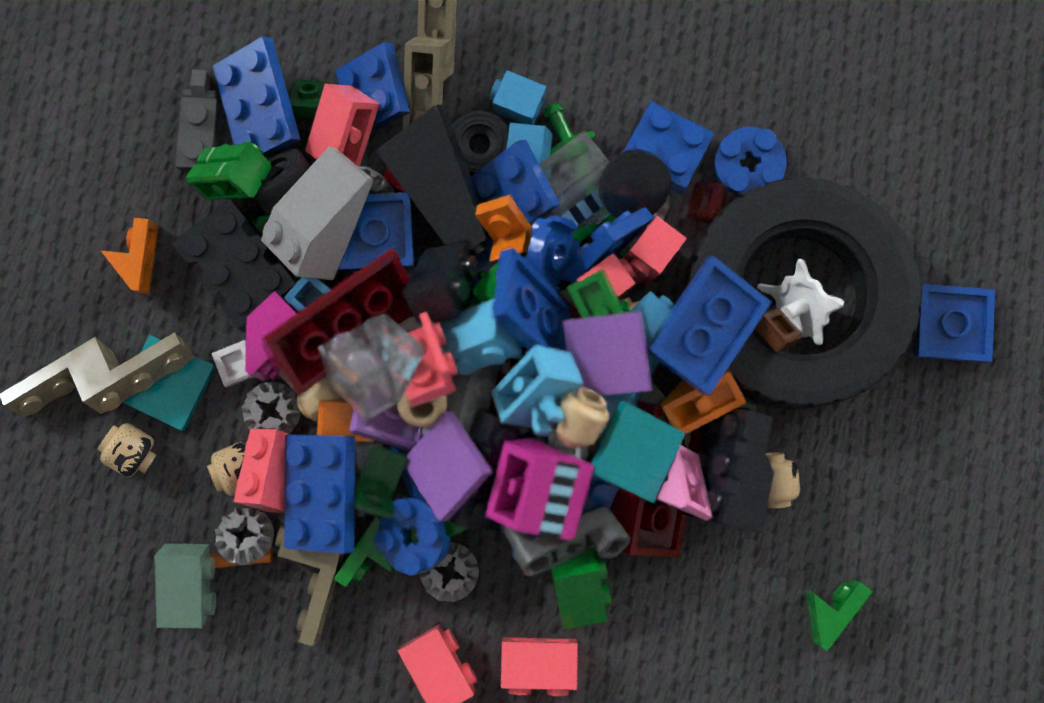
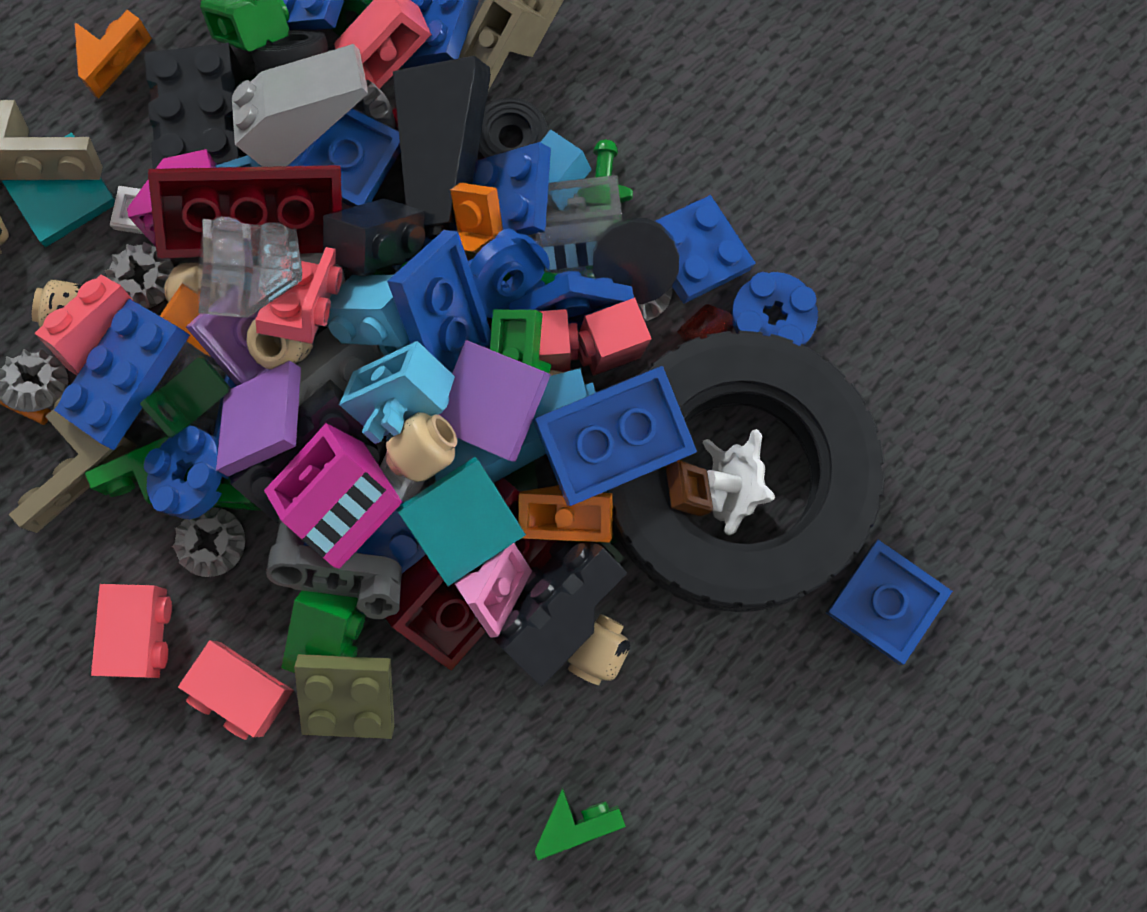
camera: 25 degrees right, 5 degrees down
(517, 98) = (577, 114): dark azure brick -> none
(621, 621) = (345, 696): none -> olive plate

